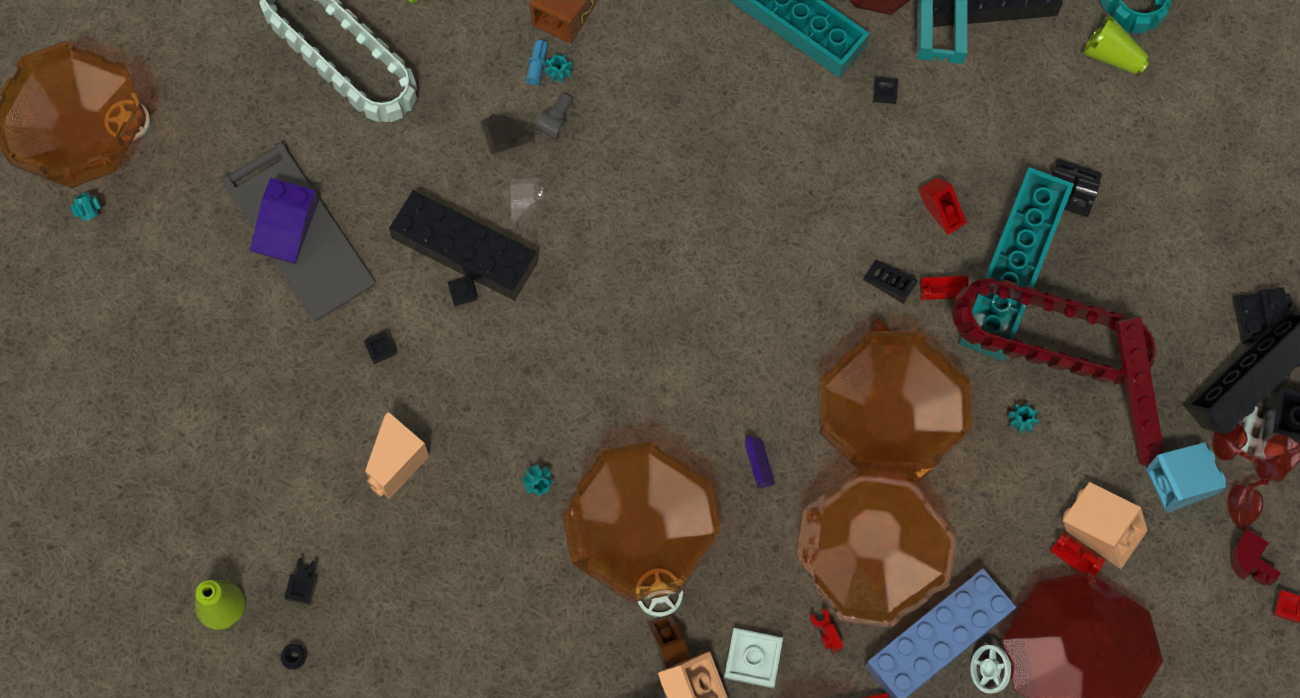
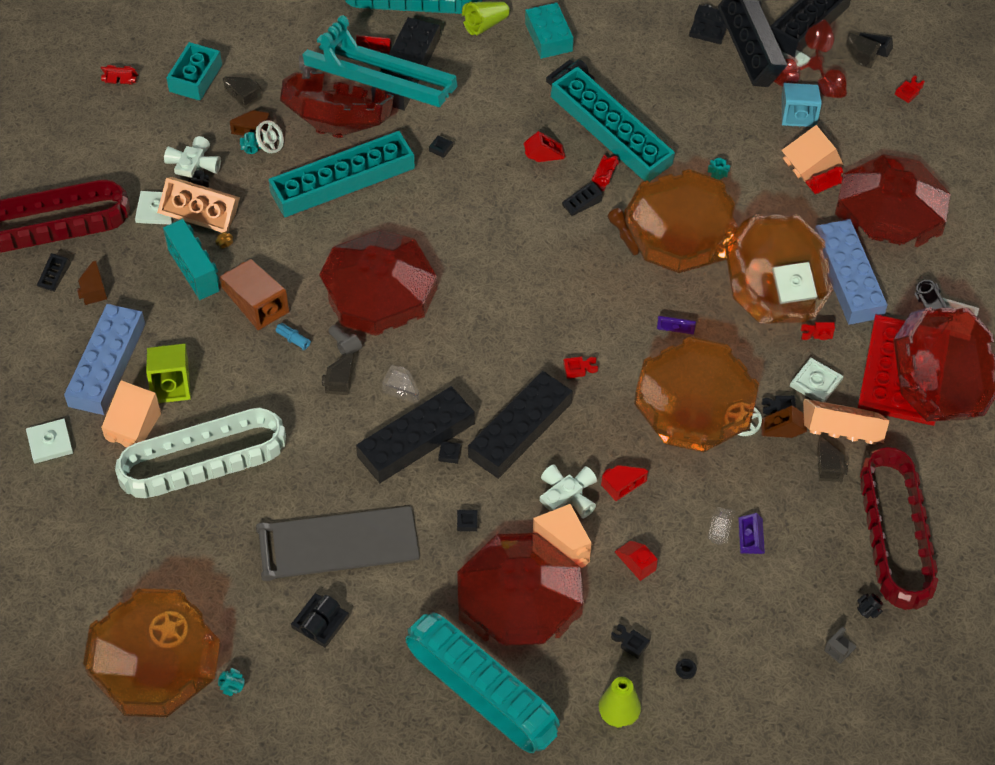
camera: 65 degrees left, 15 degrees down
(170, 448) = (482, 682): none -> teal piece
(193, 256) = (320, 619): none -> black plate
(283, 220) = (327, 543): dark purple slope -> none
(307, 440) = (519, 590): none -> clear red windscreen
(409, 547) = (638, 559): none -> red slope
(460, 436) = (568, 490): none -> light aqua brick
(495, 622) = (721, 525): none -> clear slope
(502, 663) = (751, 534): none -> dark purple slope
(503, 488) = (623, 480): none -> red slope
(528, 348) = (520, 424): none -> black brick
(537, 480) = (625, 456): teal gear -> none
(558, 74) = (307, 323): teal gear -> none
(640, 376) = (577, 367): none -> red plate
(650, 113) = (378, 281): none -> clear red windscreen
(697, 631) = (778, 404): none -> black plate
(884, 576) = (794, 283): none -> light aqua plate
(990, 669) = (883, 252): light aqua wheel -> none
(1005, 289) = (653, 152): dark red piece -> none
(1135, 129) = (549, 30): none -> teal brick
(1139, 389) = (735, 95): dark red plate -> none
(1246, 560) = (867, 98): dark red brick -> none

